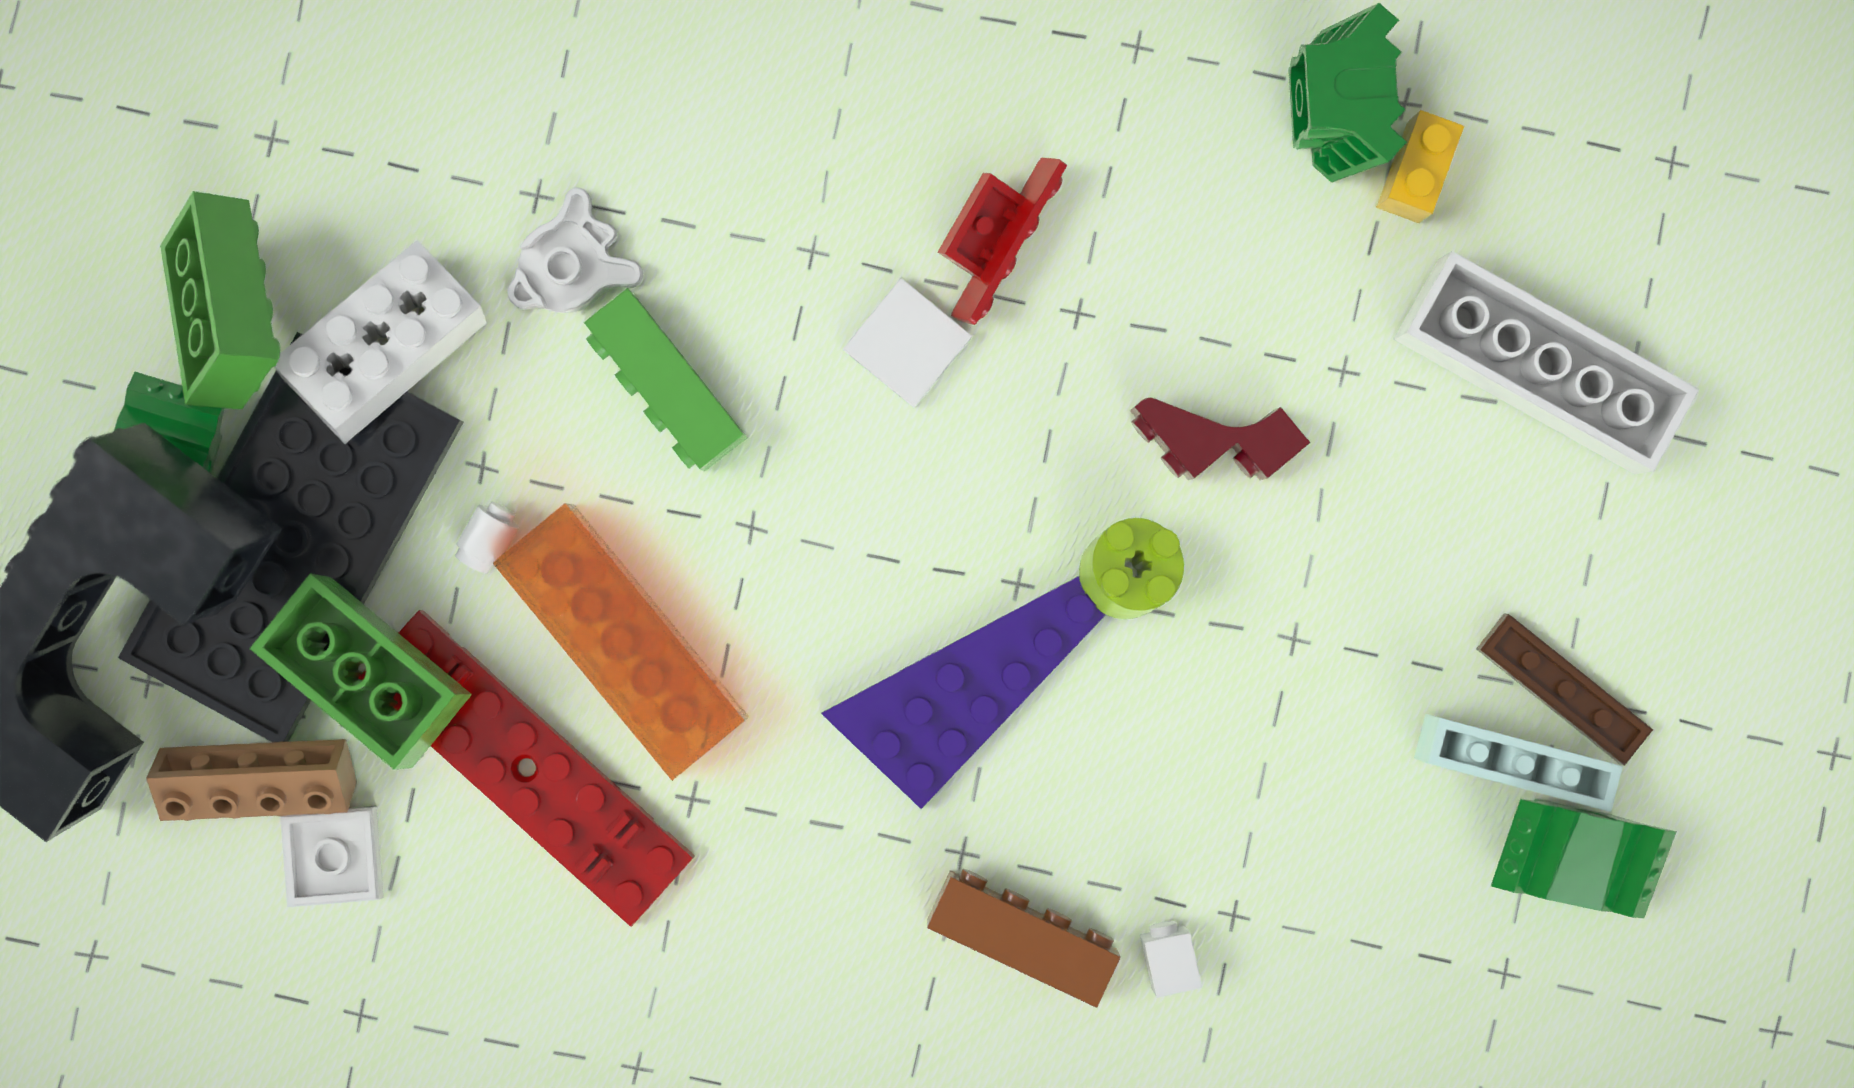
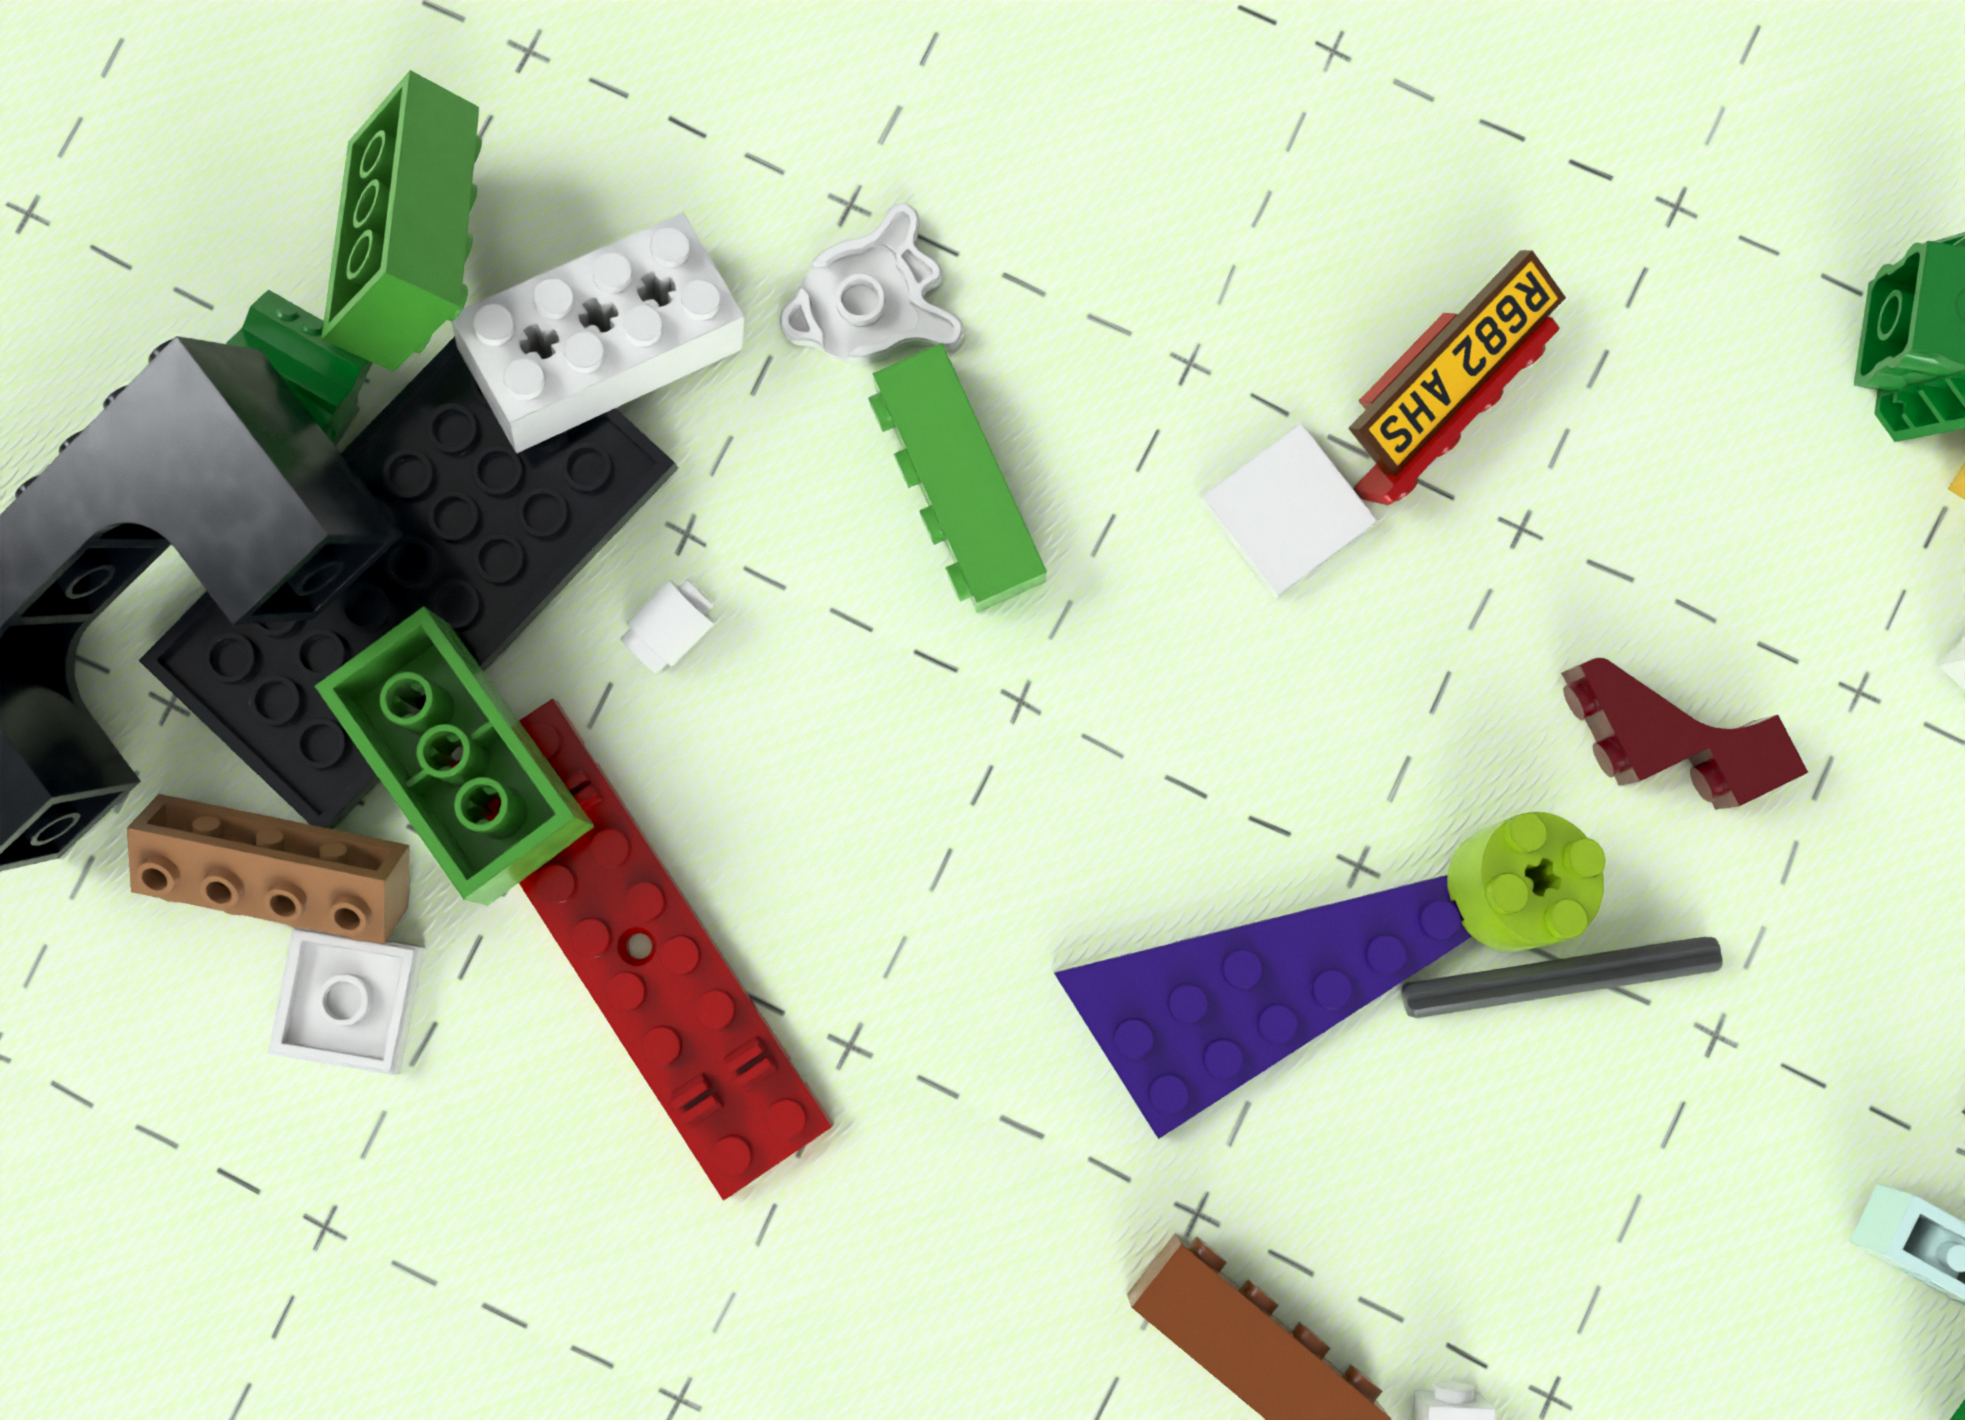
camera: 20 degrees right, 5 degrees down
(621, 640) = (812, 807): clear orange brick -> none
(999, 208) = (1457, 362): none -> tile
(1175, 626) = (1562, 977): none -> dark grey axle

